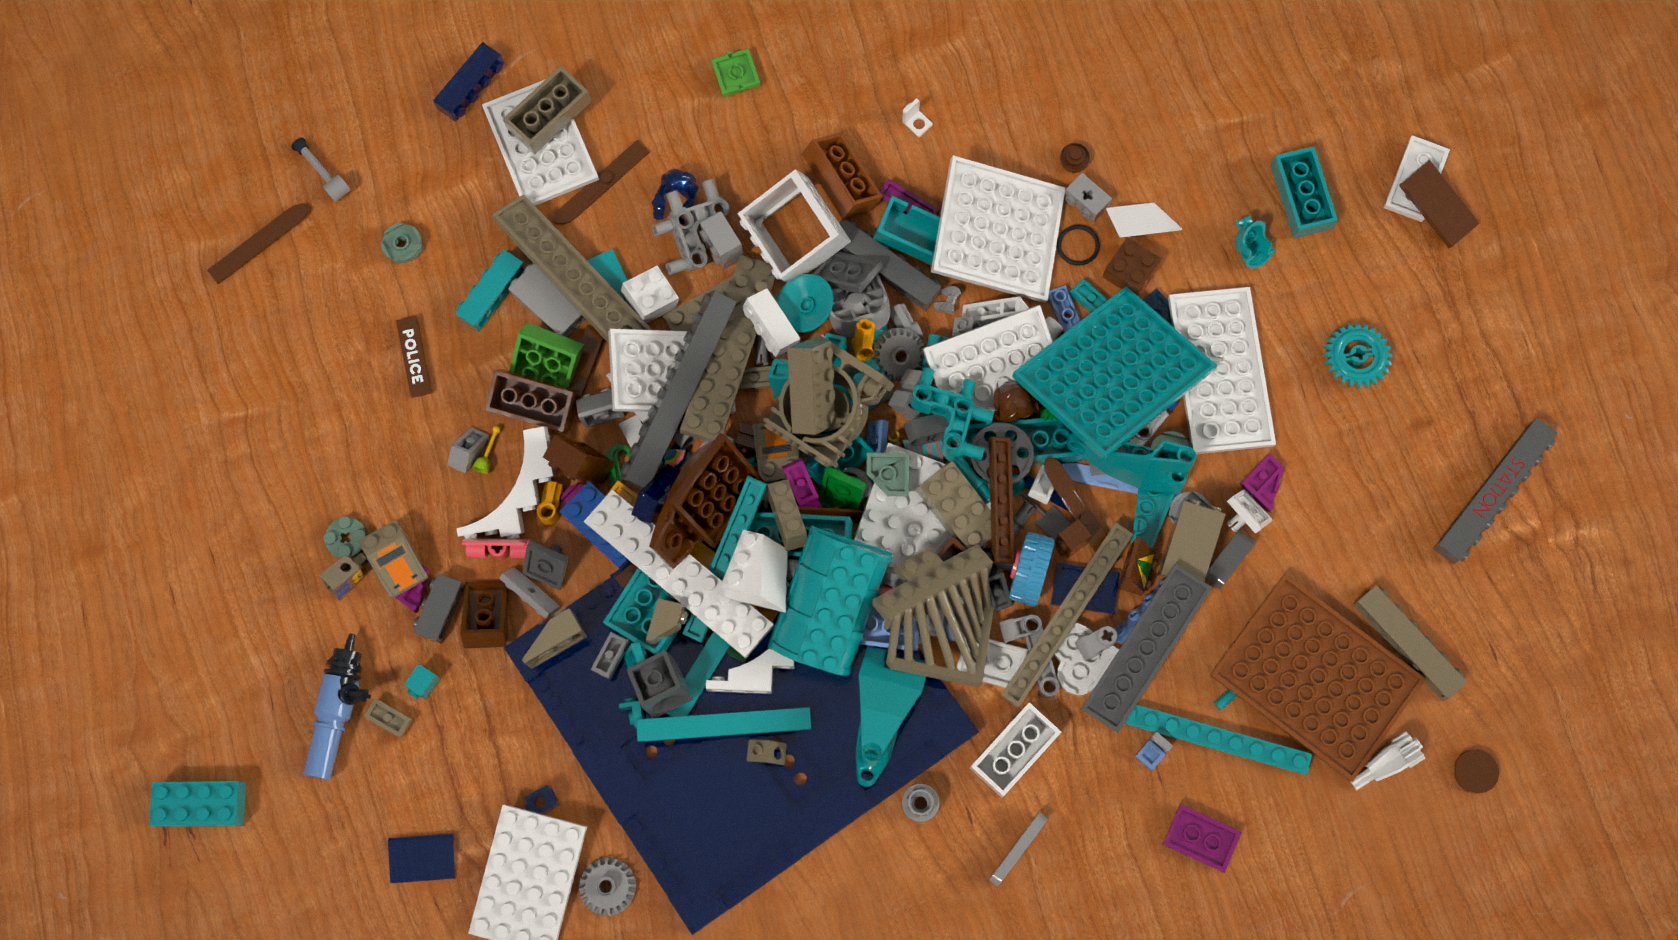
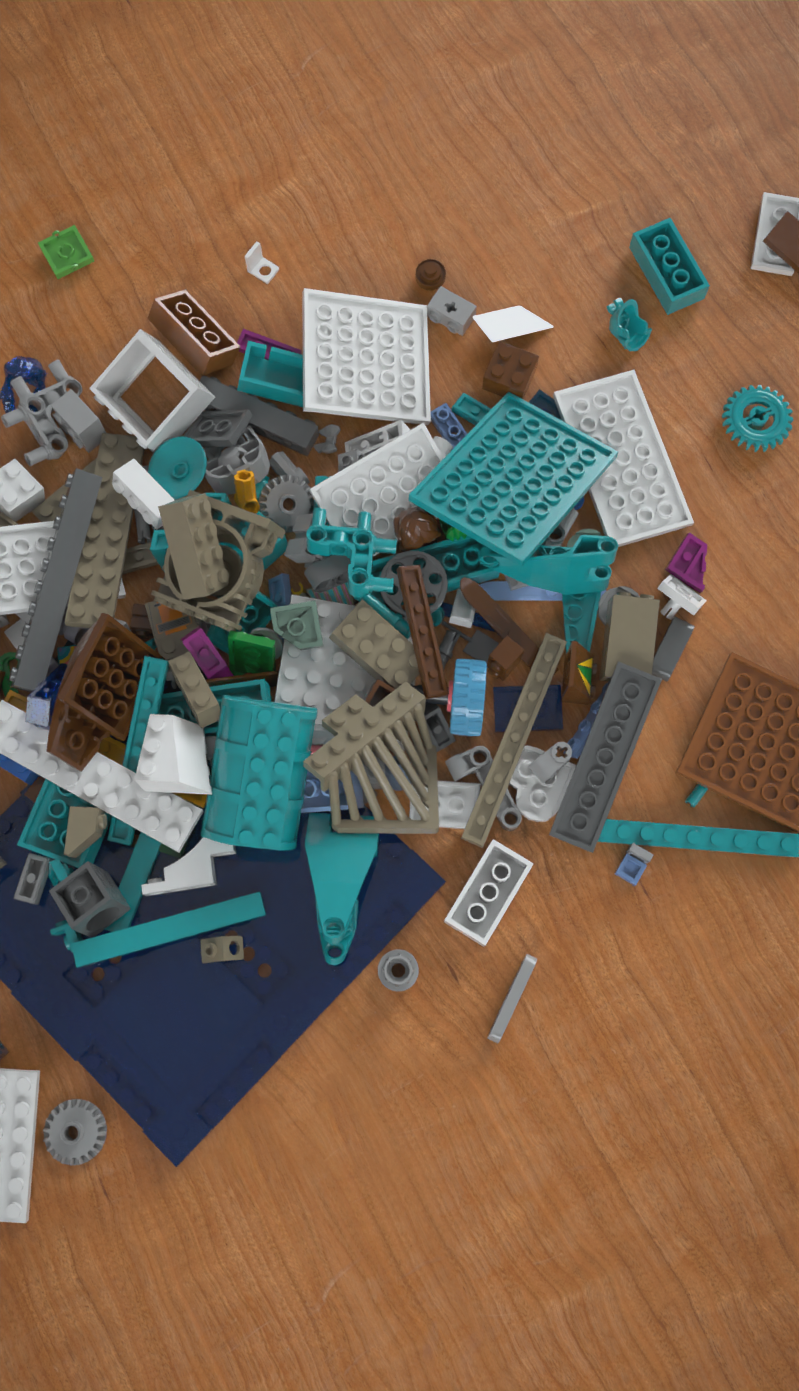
camera: 15 degrees left, 0 degrees up
(1078, 263) = (450, 379): black tyre -> none
(1201, 838) = (703, 946): magenta plate -> none

